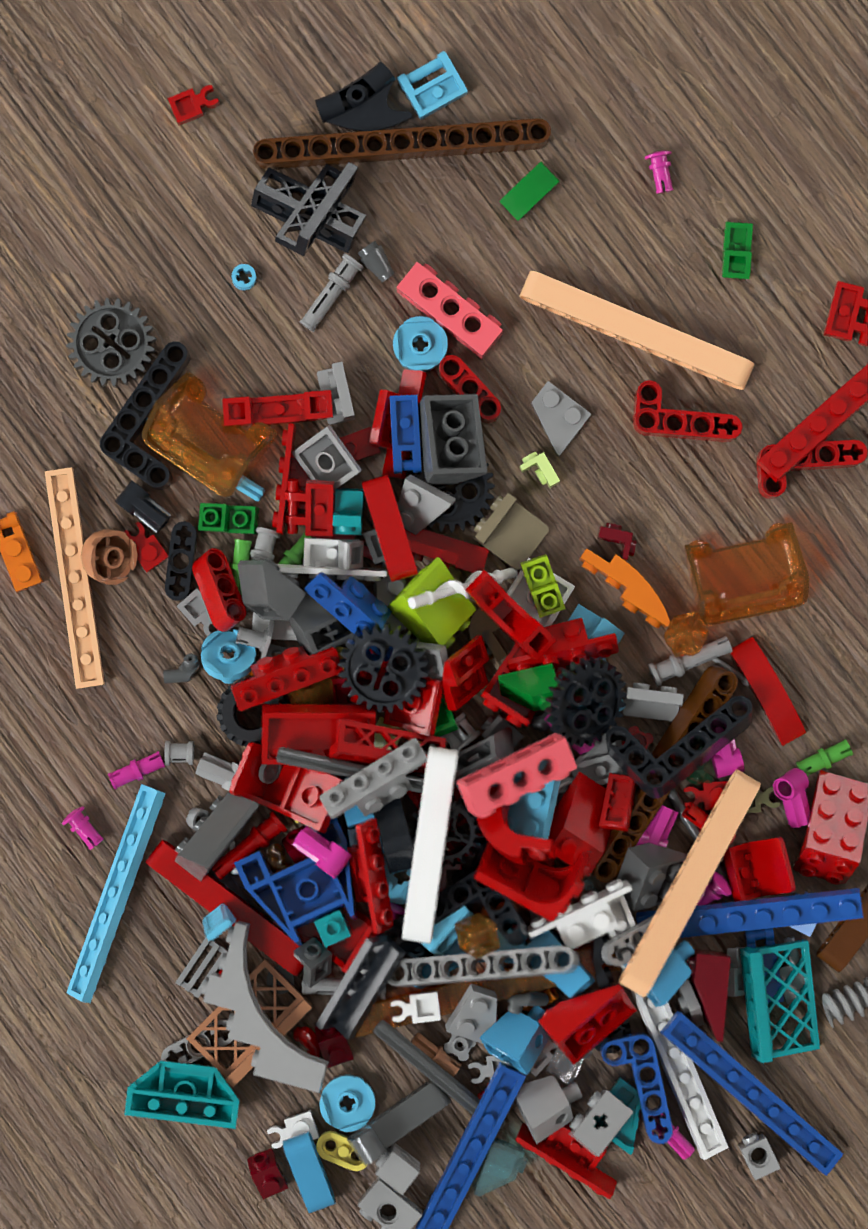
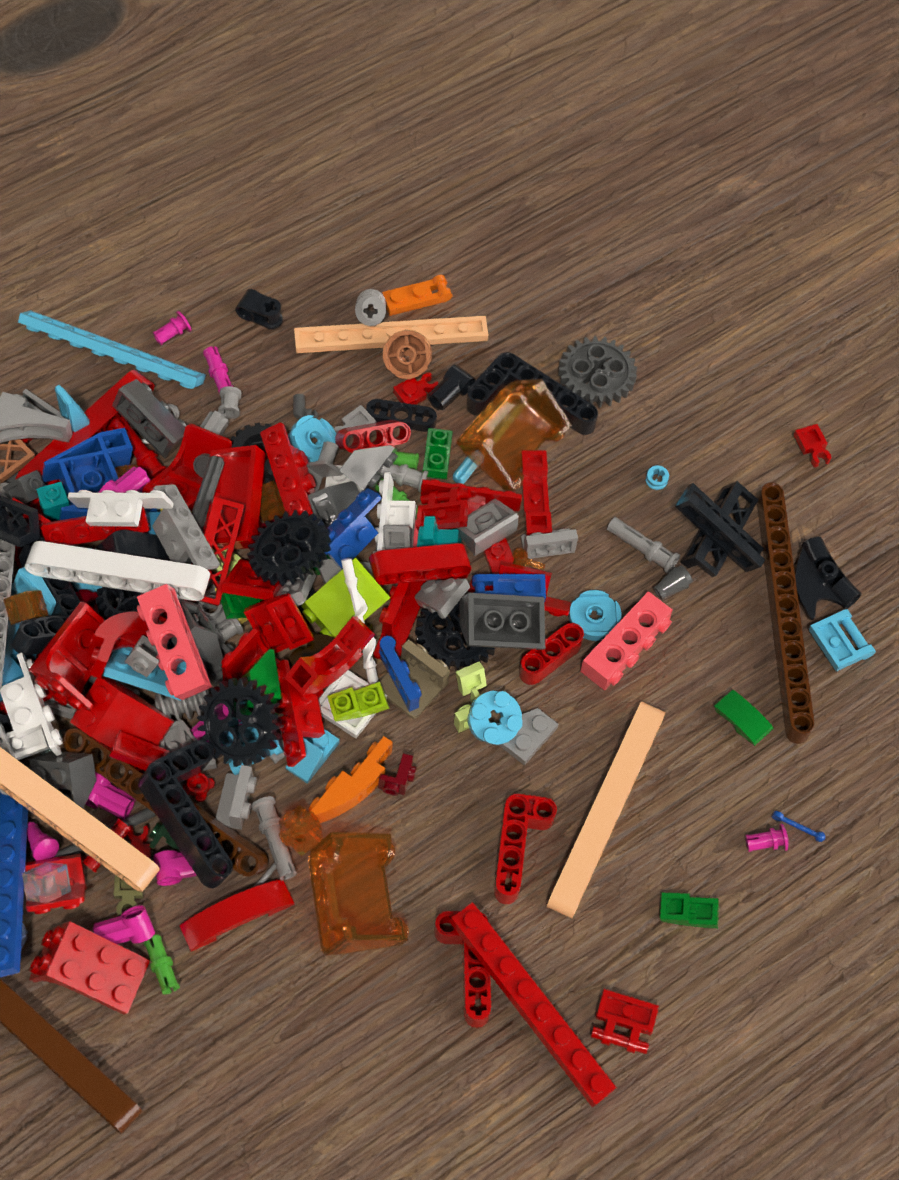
camera: 85 degrees right, 25 degrees down
(47, 602) = (367, 317): none -> light grey piece
(49, 735) = (260, 309): none -> black piece
(360, 418) = (522, 559): none -> clear orange hand
(364, 852) = (118, 508): none -> white bracket
(503, 472) = (471, 678): none -> yellowish green plate
(506, 545) = (399, 673): none -> blue plate
(531, 806) = (143, 657): none -> light grey bracket
(565, 435) = (480, 713): none -> medium azure plate
(650, 119) = (778, 816): none -> blue hinge
(762, 876) = (46, 882): none -> clear brick

